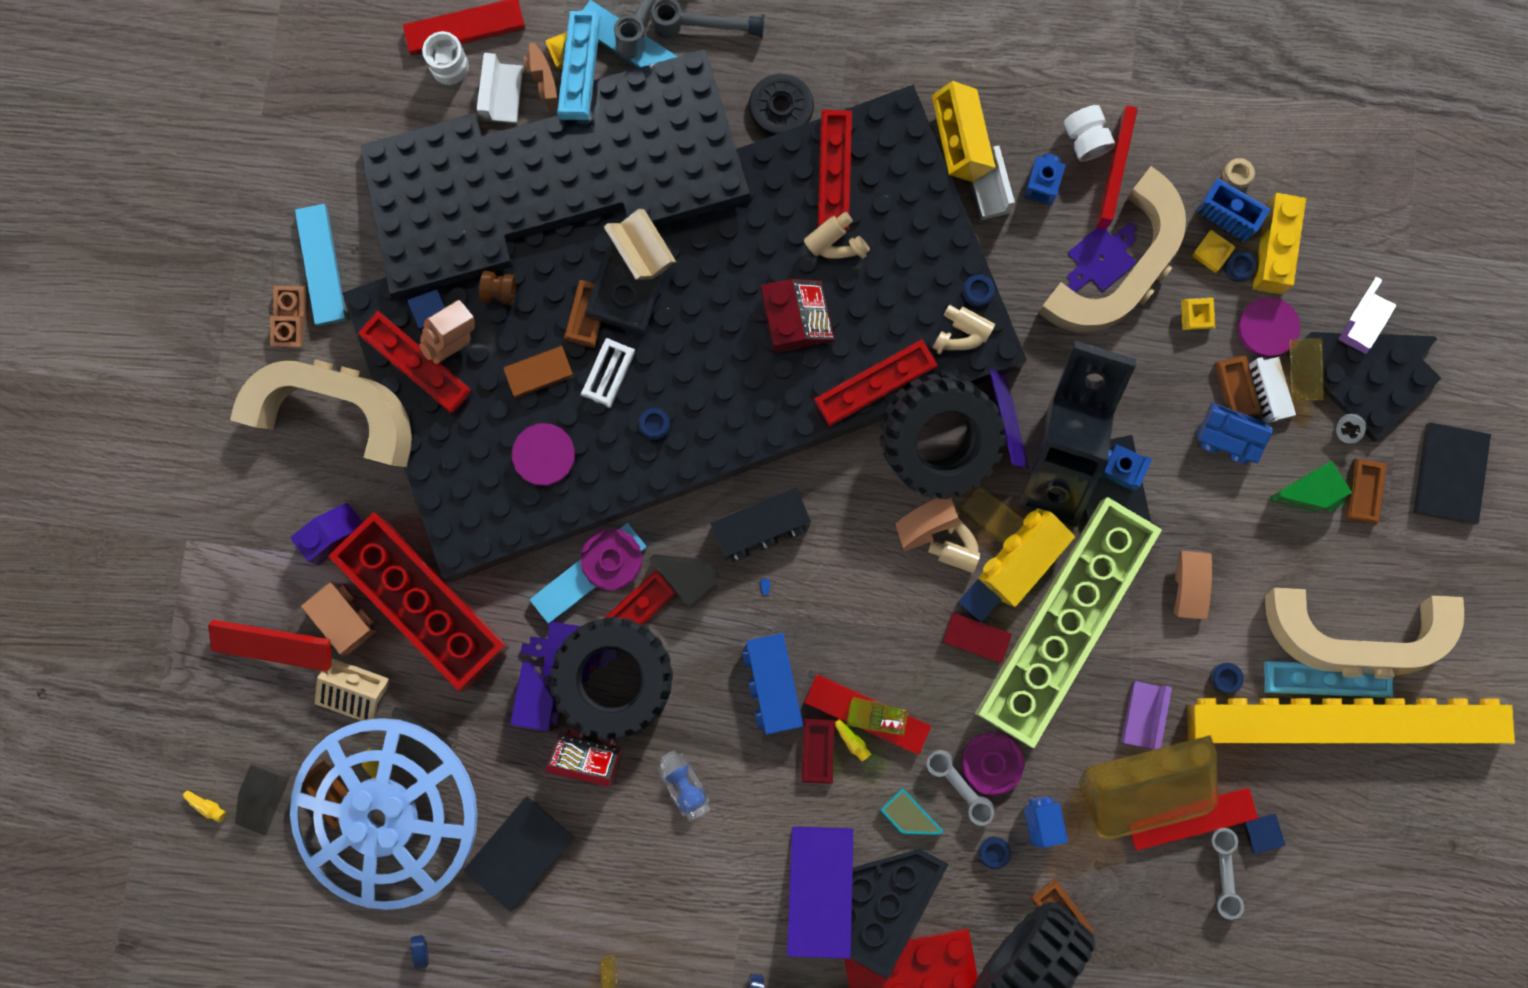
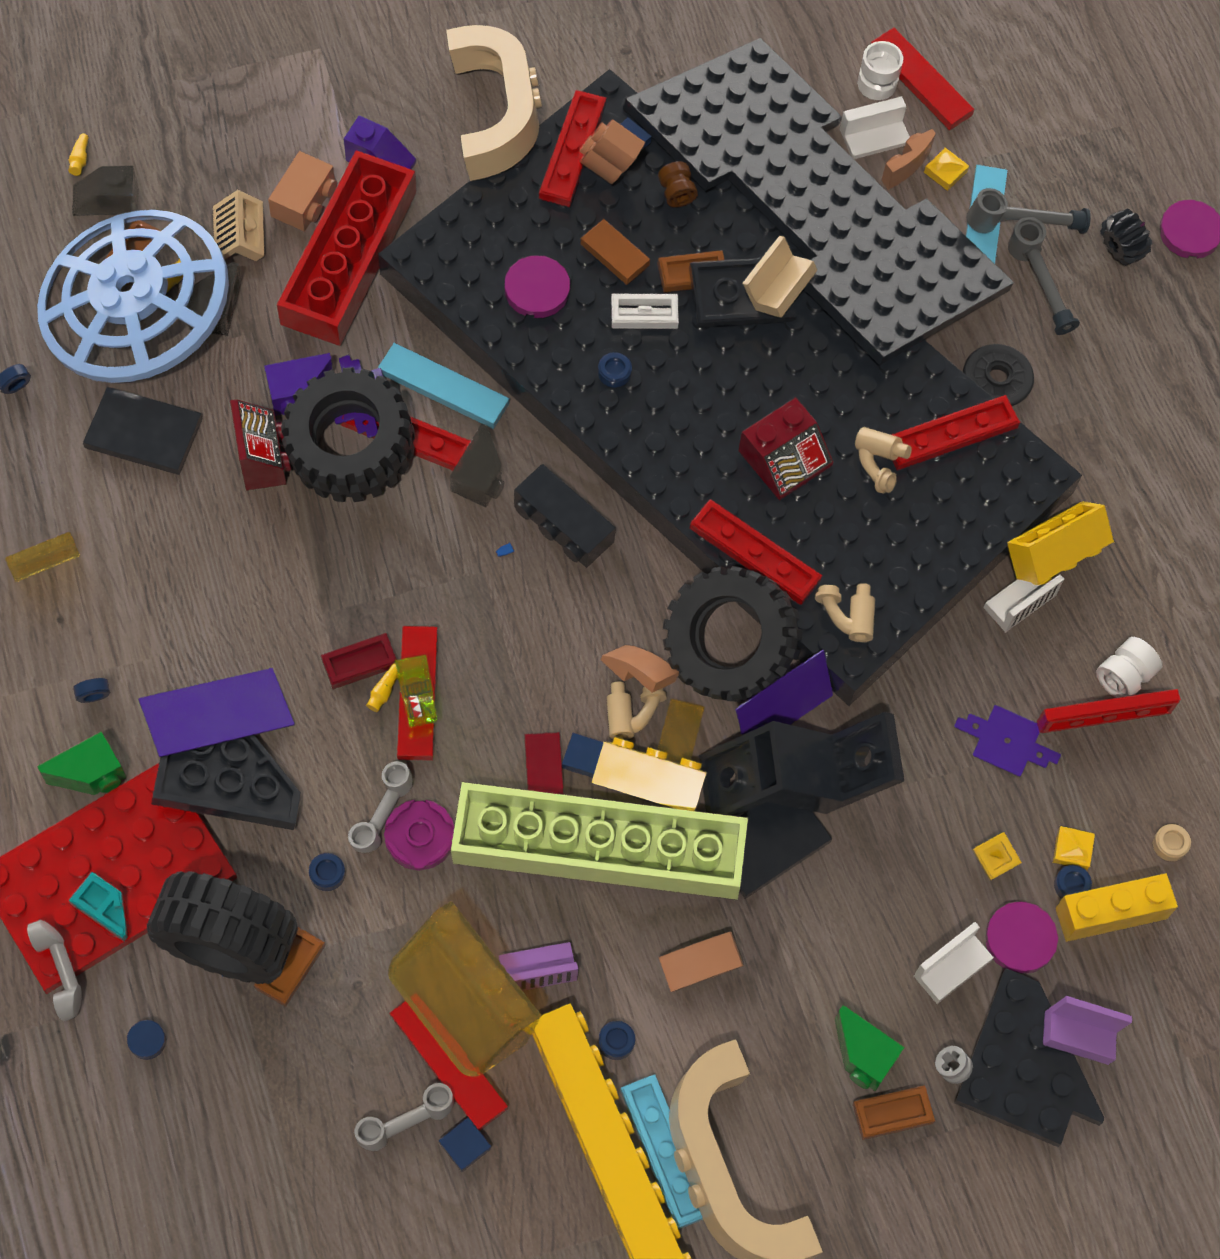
camera: 60 degrees right, 15 degrees down
(270, 645) = (252, 144): red tile -> none
(289, 316) = (563, 48): nougat slope -> none
(321, 265) = (632, 49): medium azure tile -> none
(579, 65) = (934, 179): medium azure tile -> none
(611, 559) = (465, 396): magenta tile -> none
(691, 799) = (260, 558): clear piece -> none
(772, 684) = (408, 589): blue brick -> none
(909, 816) = (330, 772): olive tile -> none
(978, 290) = (900, 611): dark blue tile -> none
(1042, 188) = (1052, 655): blue brick -> none
(1045, 822) = (378, 896): blue brick -> none
(1128, 478) = (789, 847): blue brick -> none
(1167, 214) = (1003, 780): tan arch -> none
(1232, 210) = (1125, 841): blue brick -> none
(1233, 433) = (884, 938): blue brick -> none
(1238, 386) = (937, 930): dark orange tile -> none
(1306, 369) = (994, 988): clear yellow tile -> none
(1452, 473) = (960, 1201): black tile -> none

